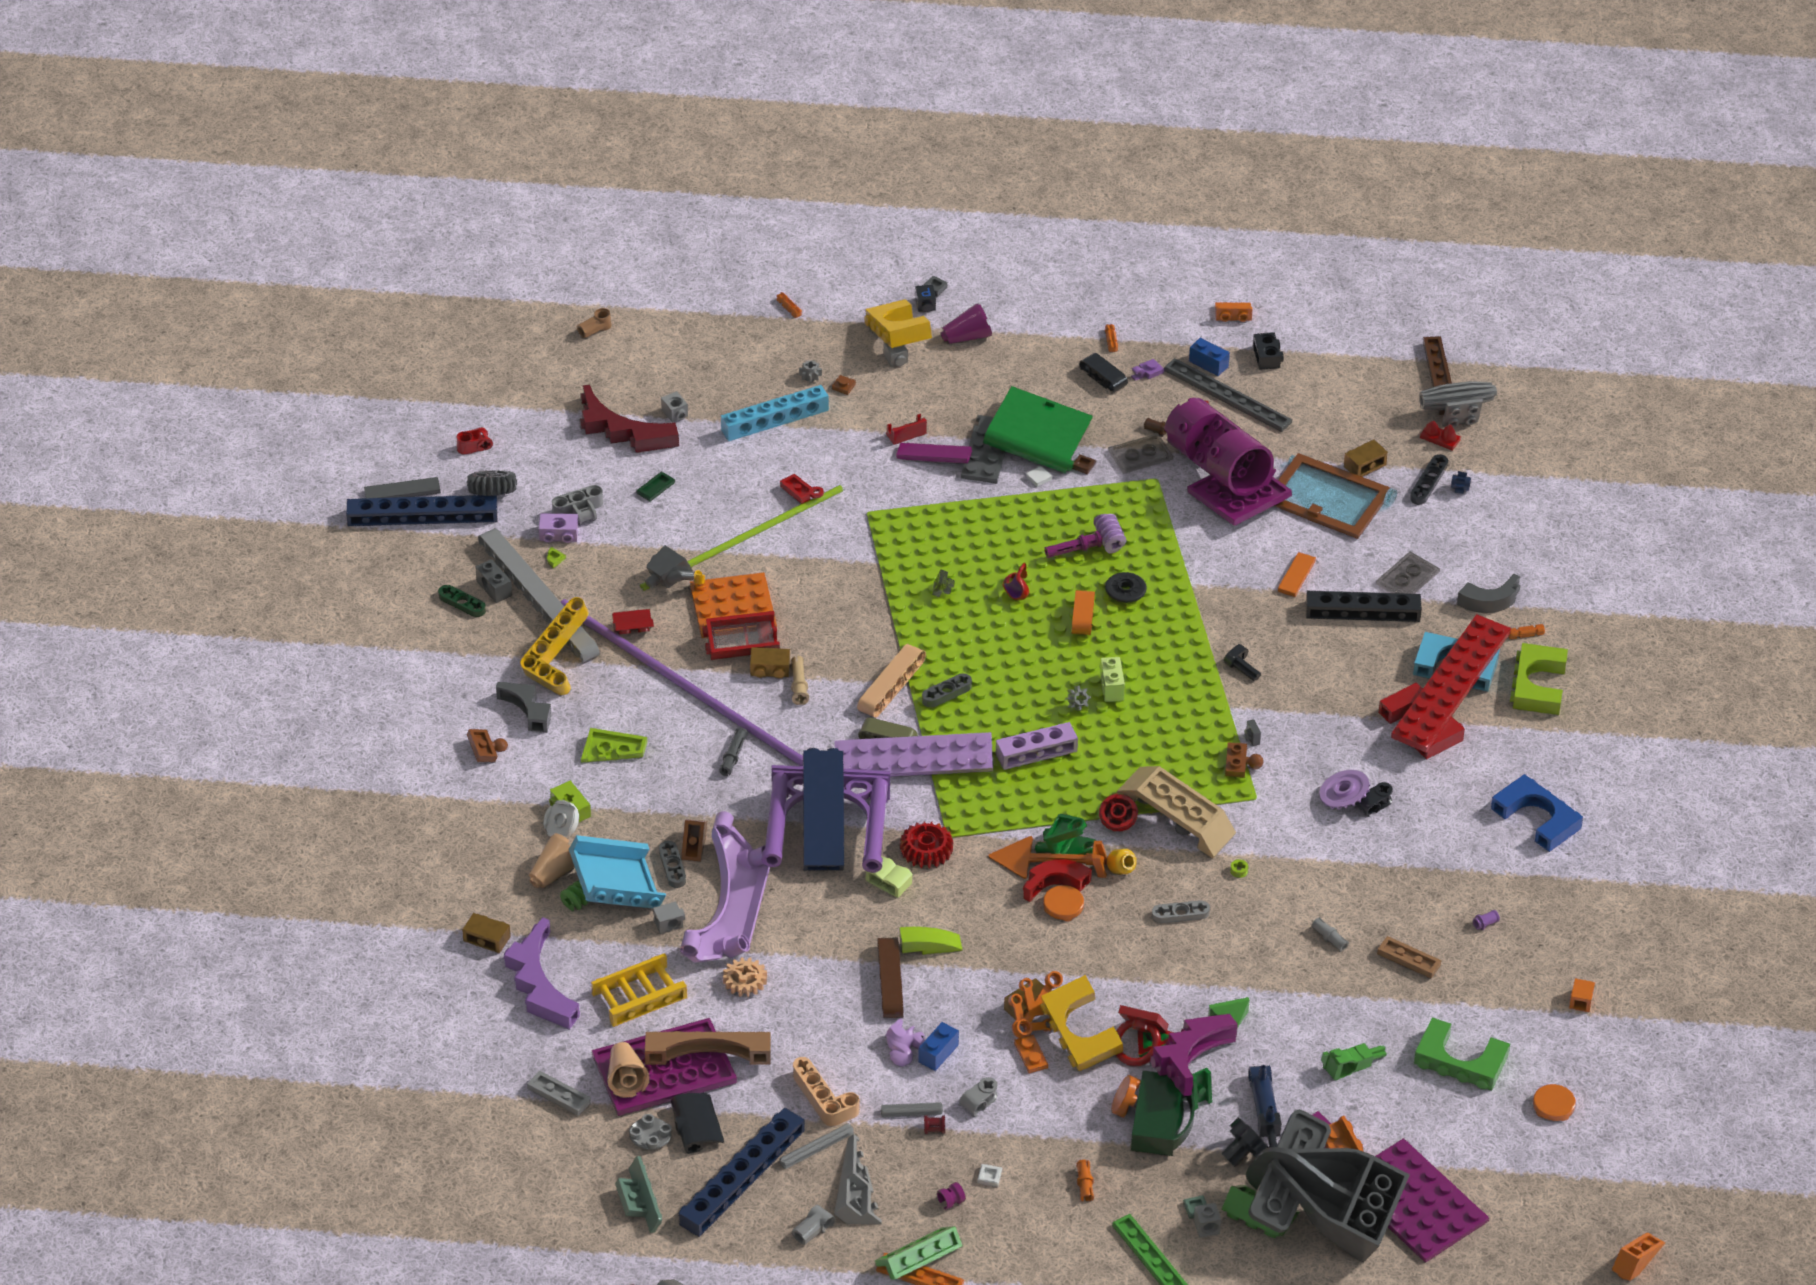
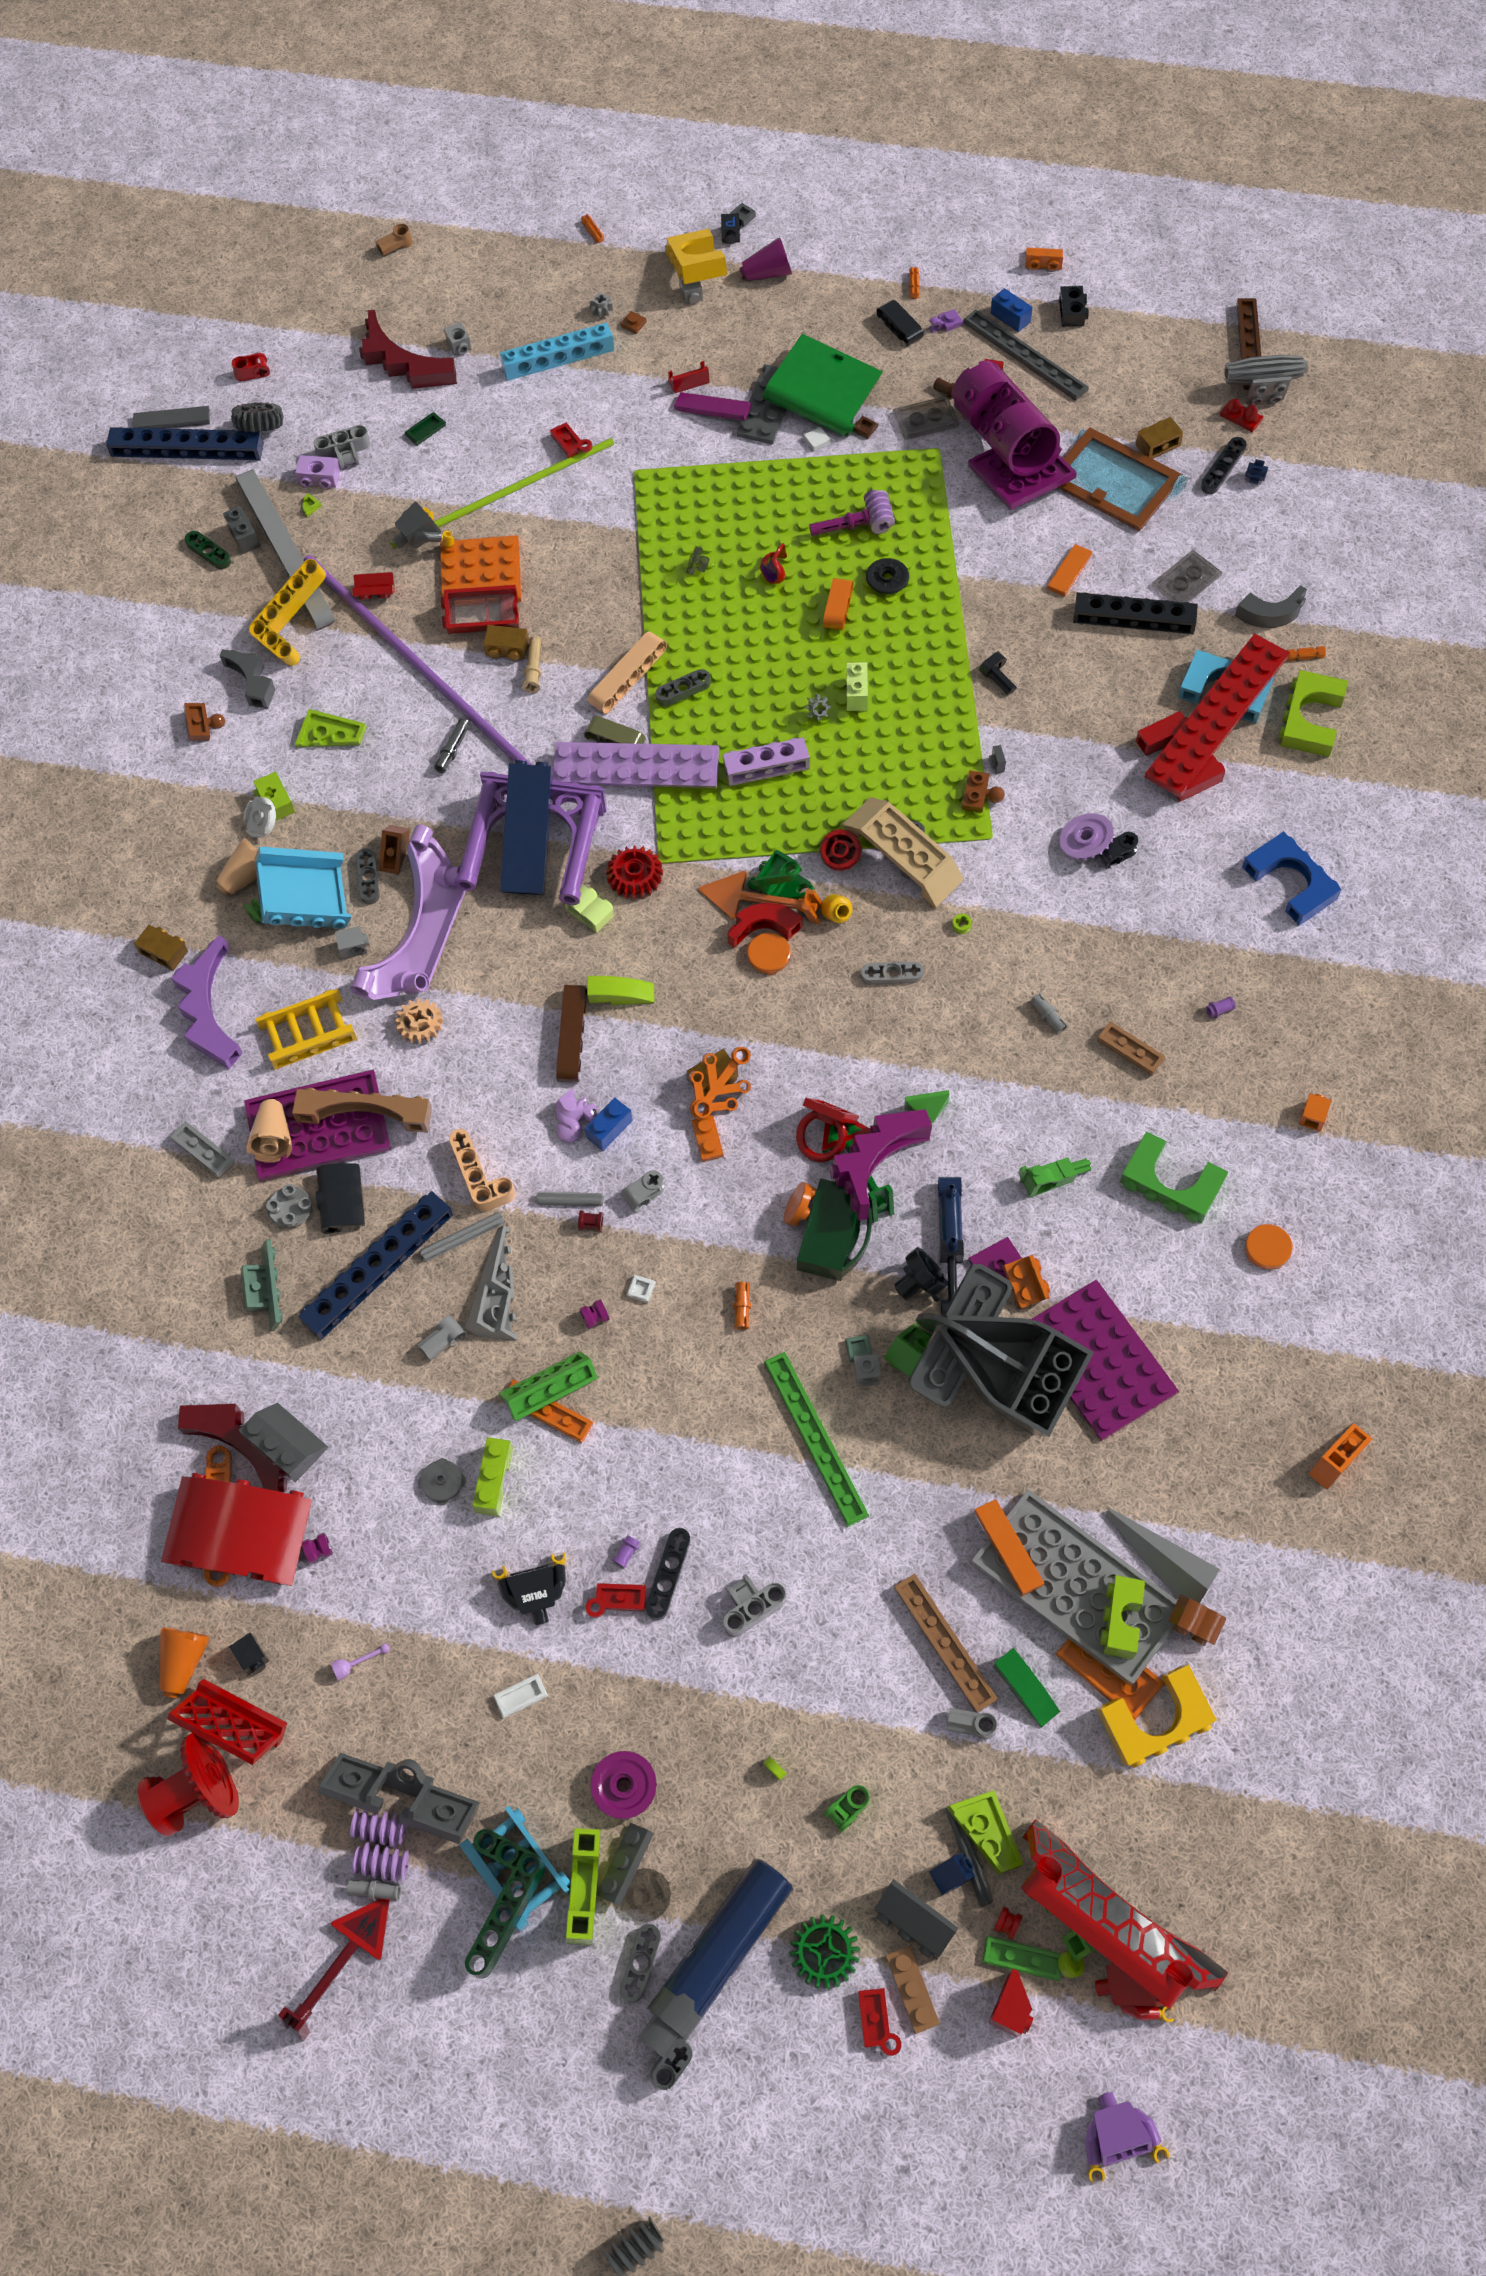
camera: 10 degrees right, 20 degrees up
(1082, 1050) = (741, 1089): yellow arch -> none

